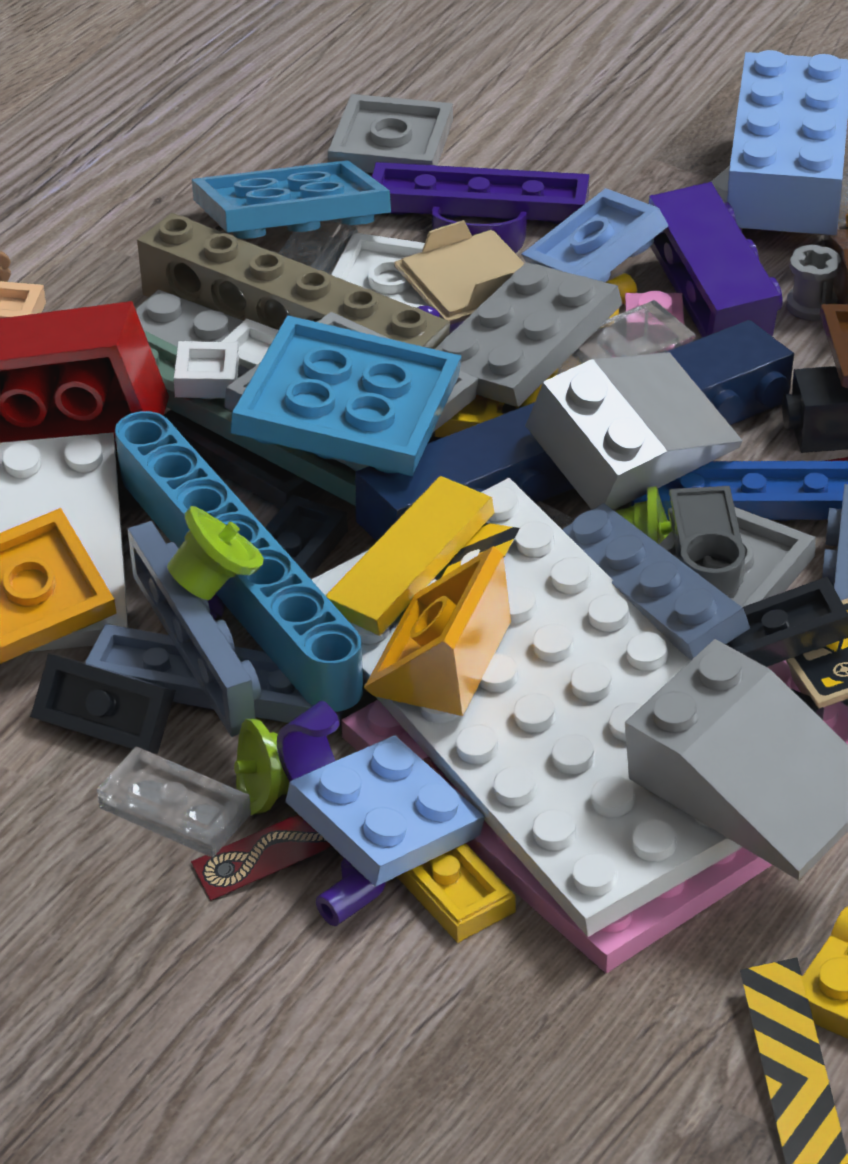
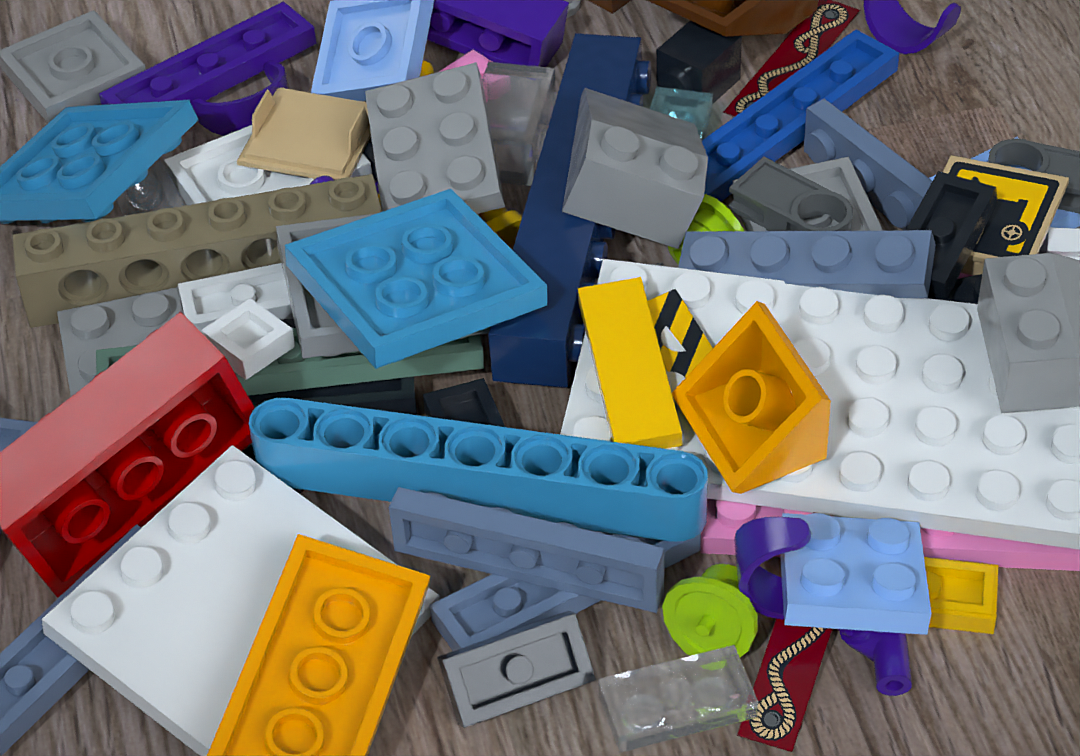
camera: 45 degrees left, 5 degrees up
(211, 555) = (510, 474): lime piece -> none
(767, 435) = (685, 105): none -> clear light blue plate

